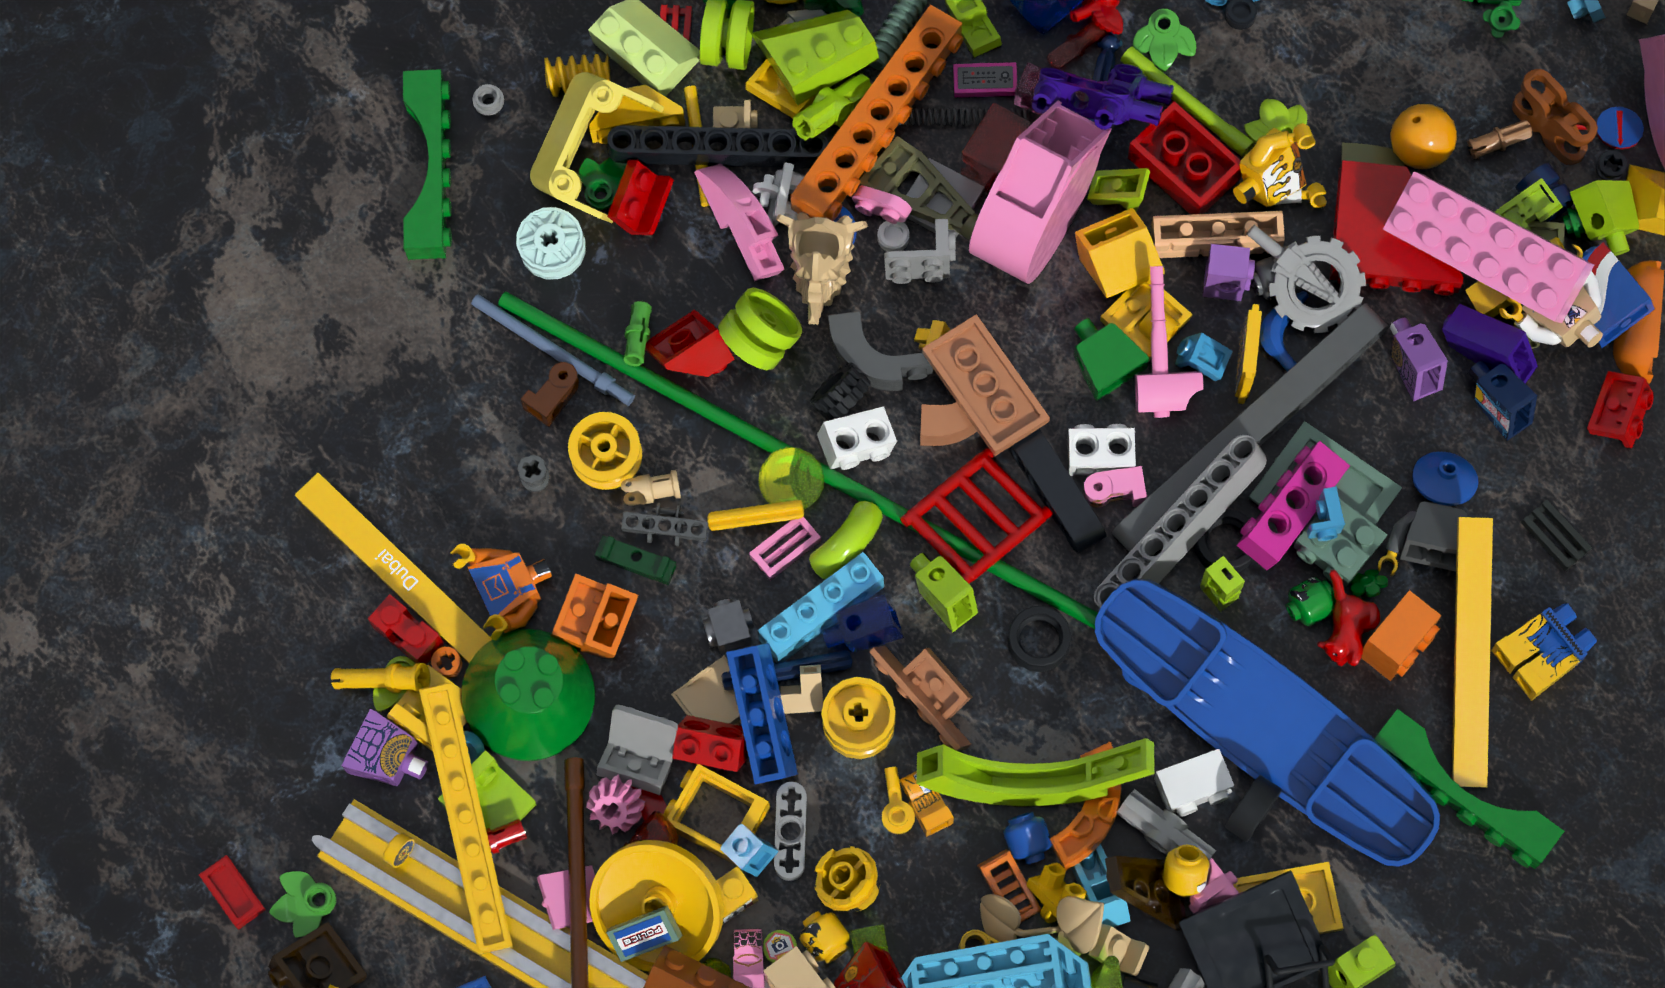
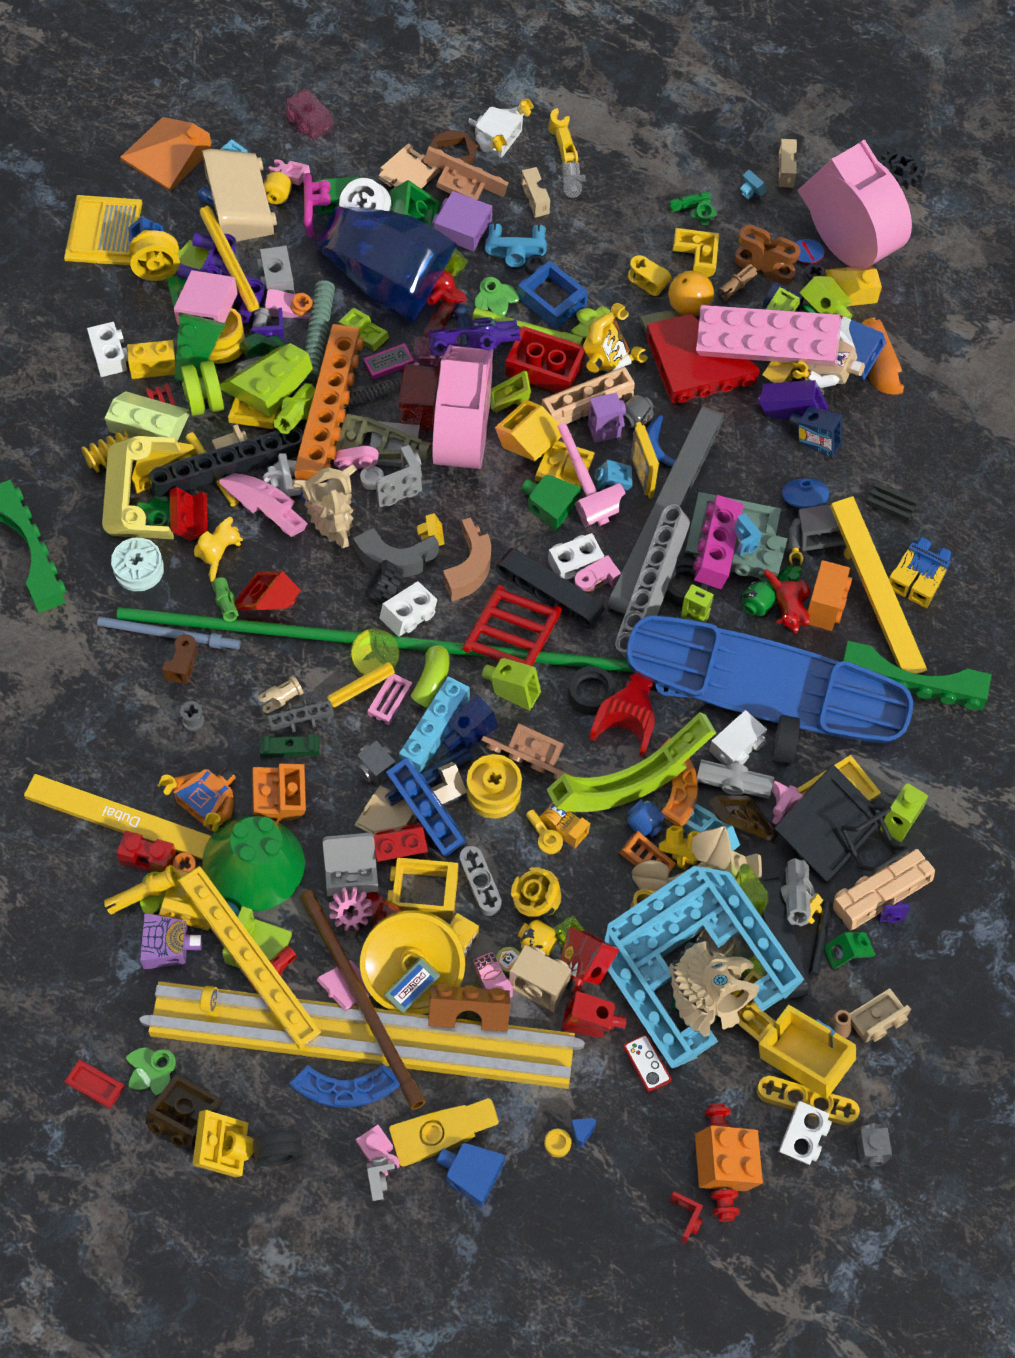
camera: 30 degrees left, 10 degrees down
(488, 91) = (48, 485): light grey plate -> none
(607, 468) = (236, 681): yellow wheel -> none
(651, 256) = (212, 546): none -> yellow animal
(748, 850) = (459, 899): dark azure bracket -> none
(760, 329) = (311, 561): lime wheel -> none
(985, 385) = (481, 540): nougat plate -> none
(1072, 683) = (628, 710): none -> red animal
(1186, 870) = (762, 794): yellow head -> none
(1253, 92) = (564, 311): none -> blue window
(1295, 266) = (650, 397): light grey bar -> none
(1382, 85) = (649, 277): none -> yellow piece
(1418, 358) = (753, 426): medium lavender torso -> none
(1477, 71) = (701, 244): none -> yellow brick
(1621, 408) = (893, 410): red bracket -> none

